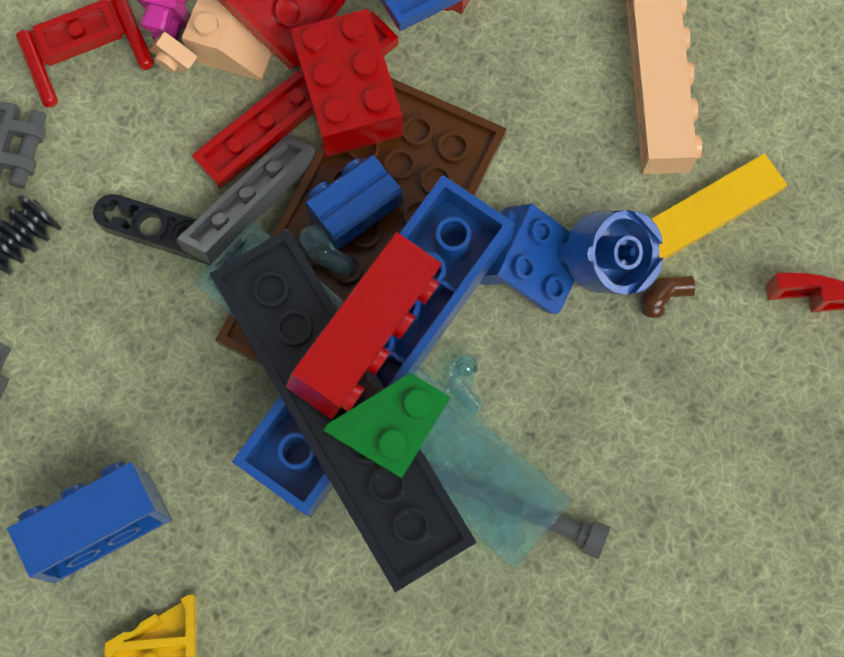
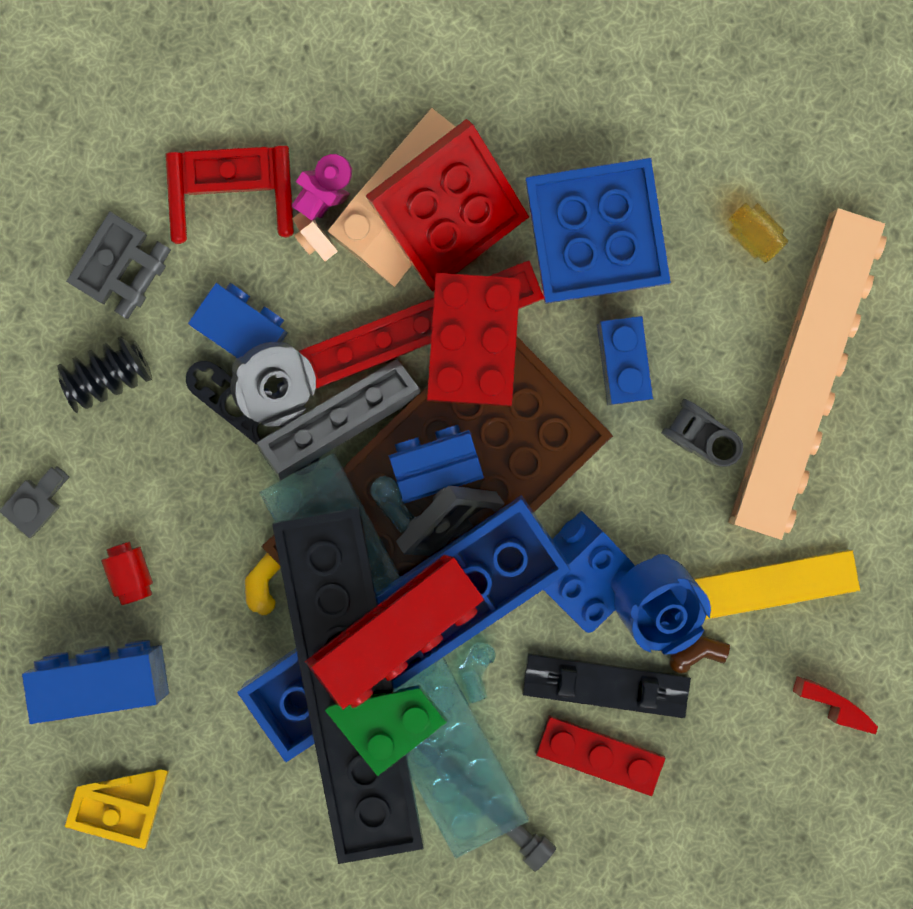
camera: 25 degrees right, 15 degrees up
(92, 412) = (127, 573): none -> red brick
(129, 154) = (233, 323): none -> blue brick
(151, 183) = (254, 369): none -> plate
(225, 382) = (257, 588): none -> yellow arm
(374, 233) = (445, 519): none -> dark grey wing
(491, 62) = (624, 360): none -> blue brick
(586, 102) = (701, 434): none -> dark grey piece
(592, 355) = (606, 685): none -> black hinge
(615, 423) = (600, 755): none -> red plate

